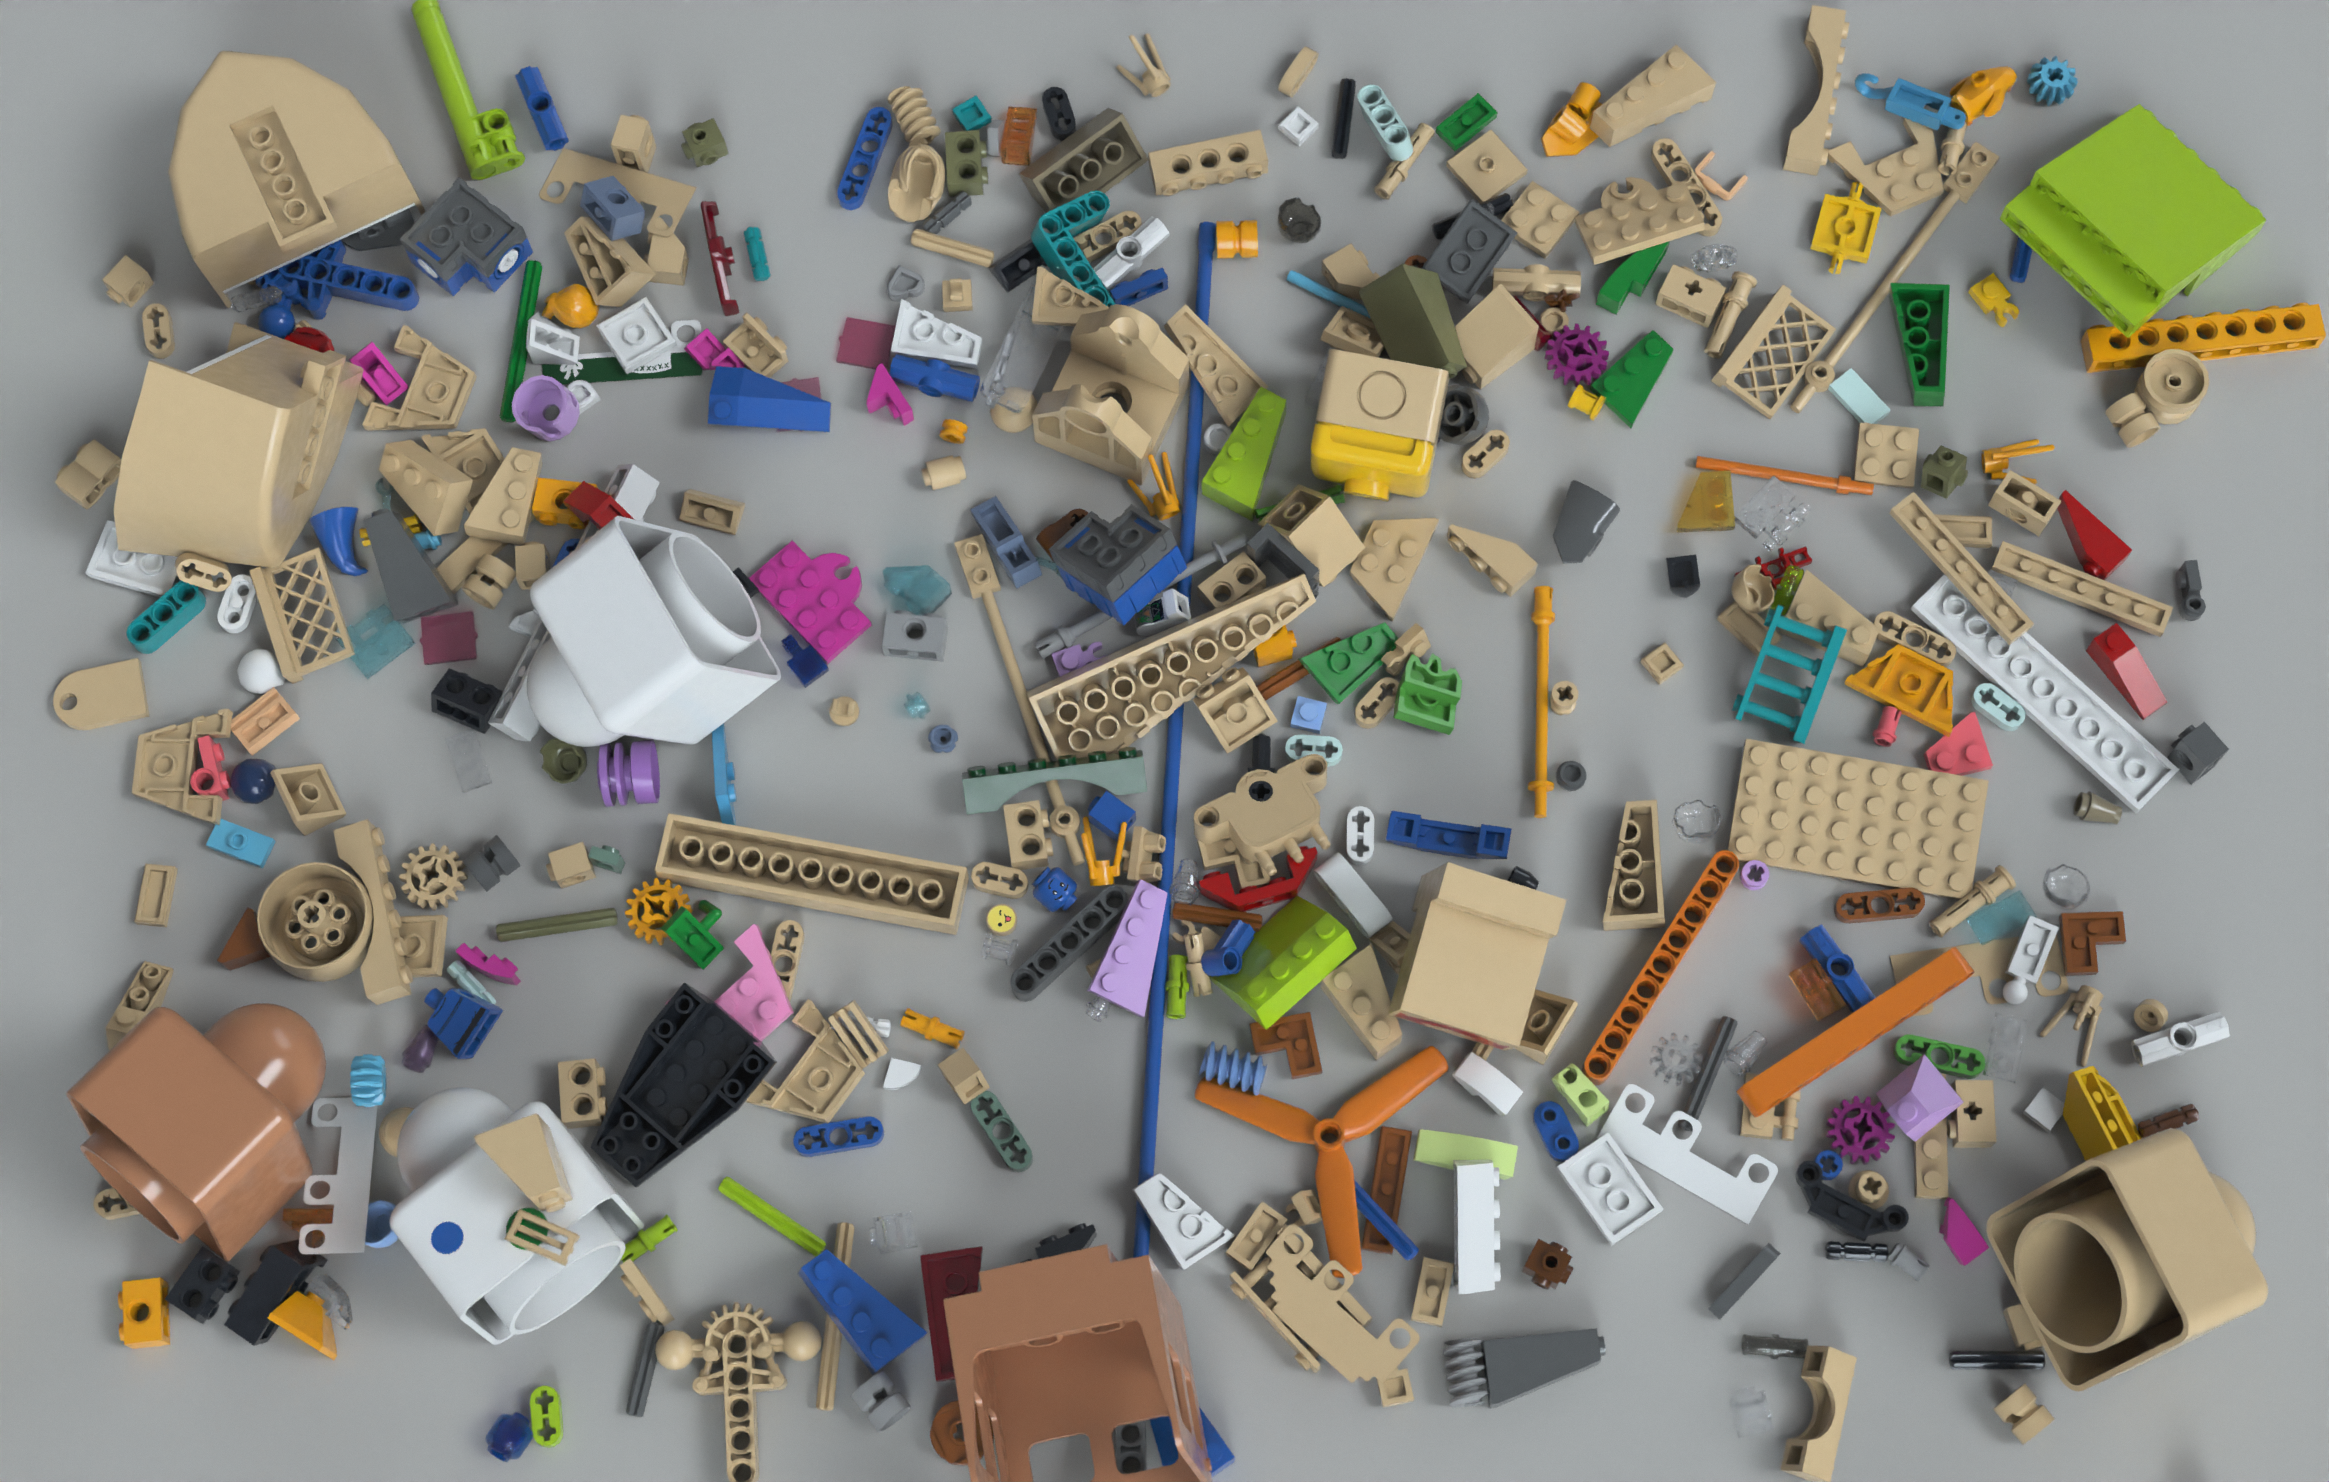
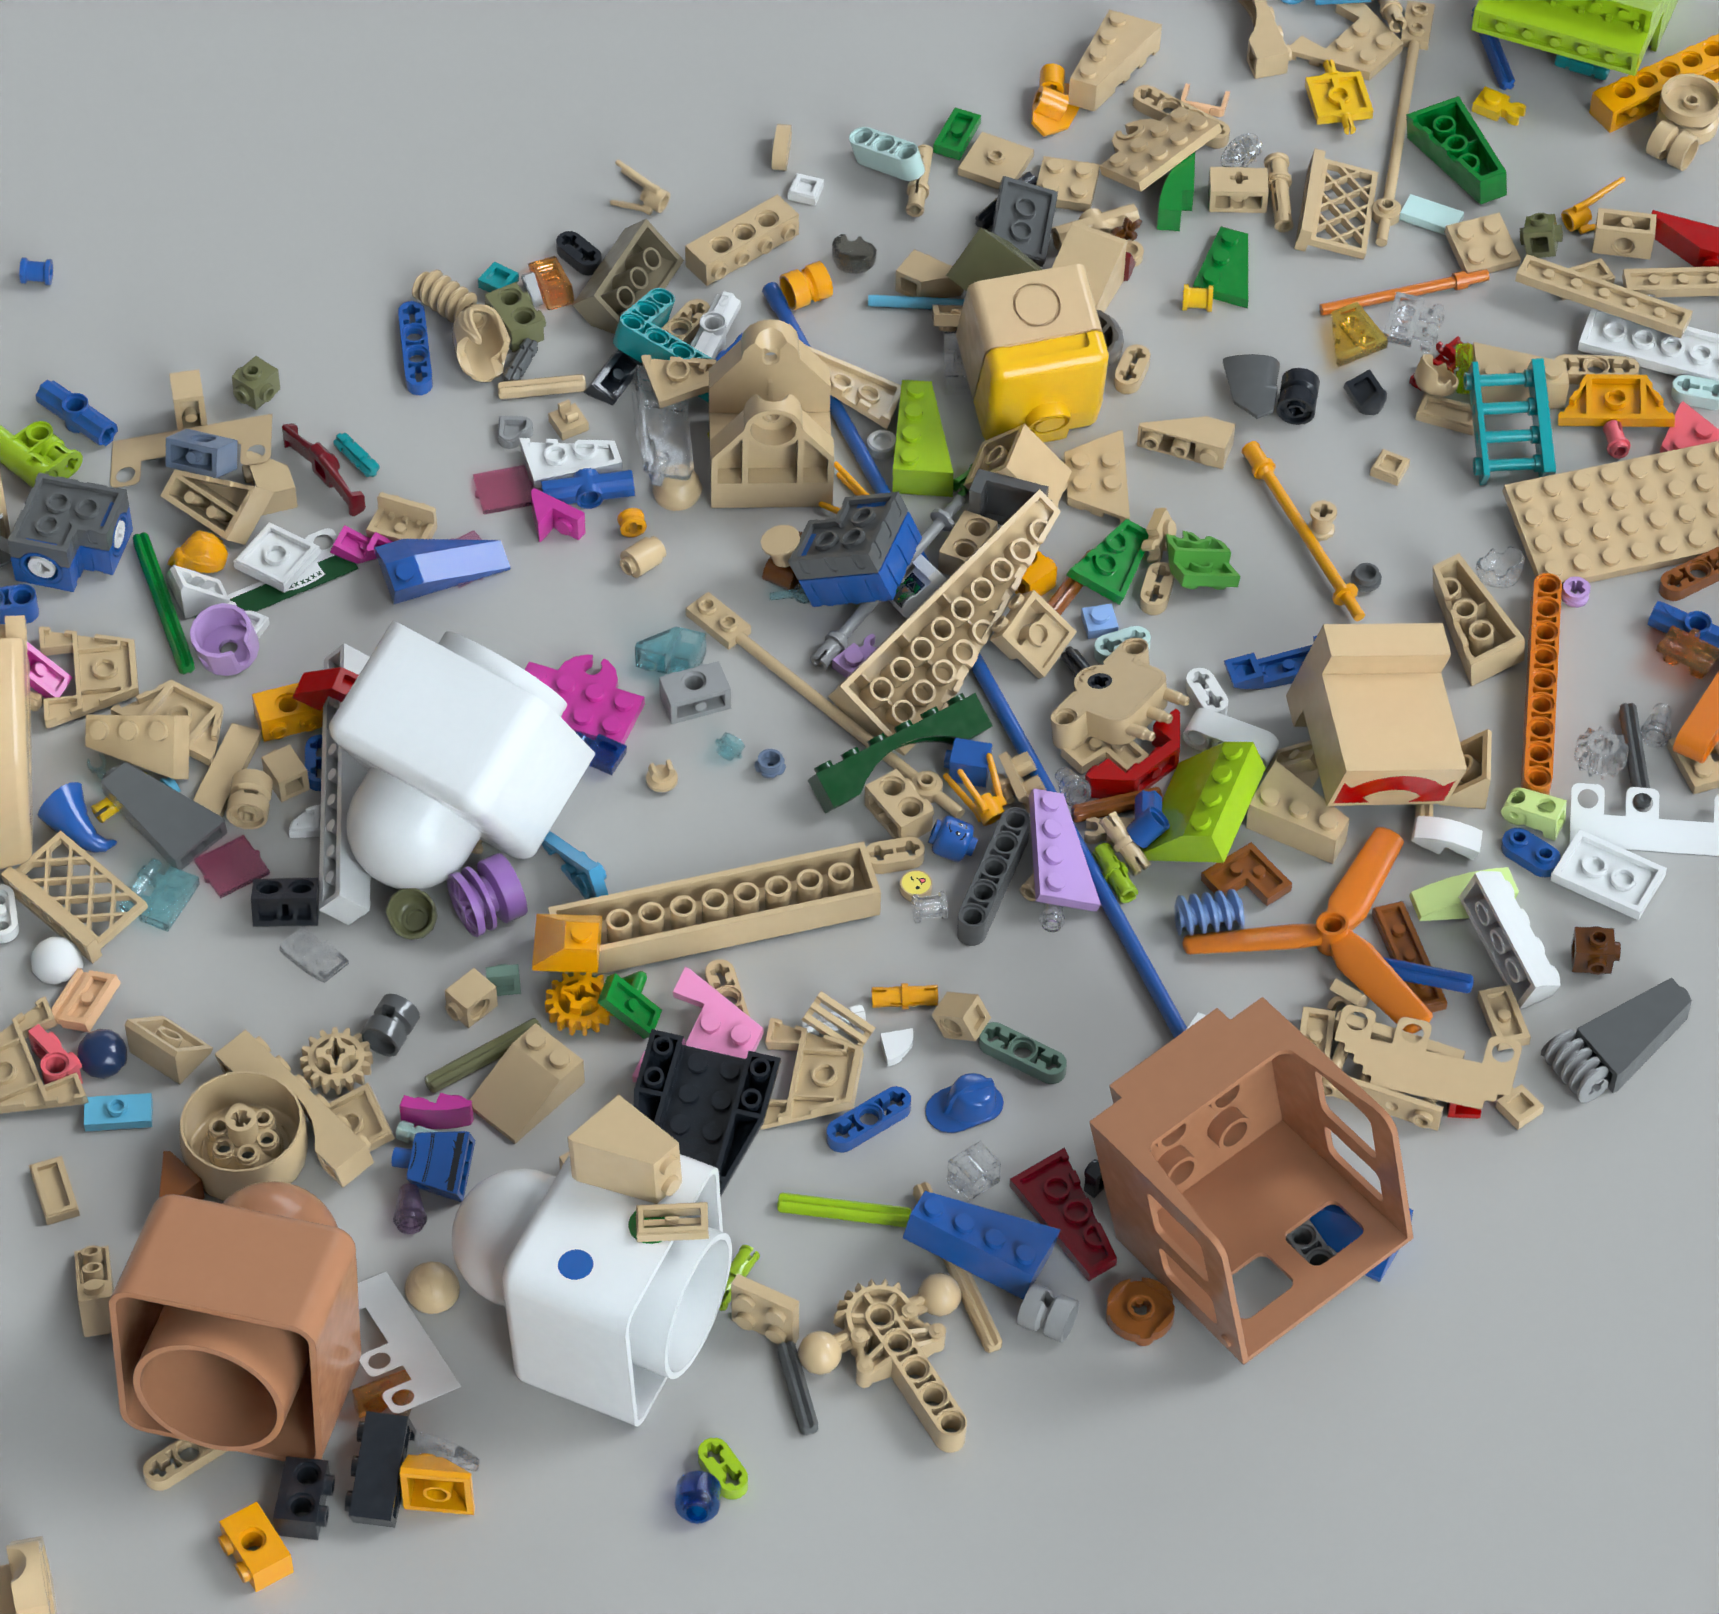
camera: 30 degrees left, 20 degrees down
(368, 1080) = (375, 1250): medium azure gear -> none
(378, 1226) = (465, 1366): light blue hair -> none
(508, 500) = (236, 721): tan wedge -> none
(574, 972) = (528, 1083): none -> tan slope
(664, 858) = (567, 943): none -> light orange slope
(927, 1159) = (964, 1104): none -> blue piece
(1006, 542) = (736, 589): sand blue slope -> none
(1054, 523) = (780, 543): none -> tan piece
(1343, 118) = (844, 169): black axle -> none
(1576, 368) = (1166, 266): magenta gear -> none
(1617, 552) = (1298, 396): none -> black wheel

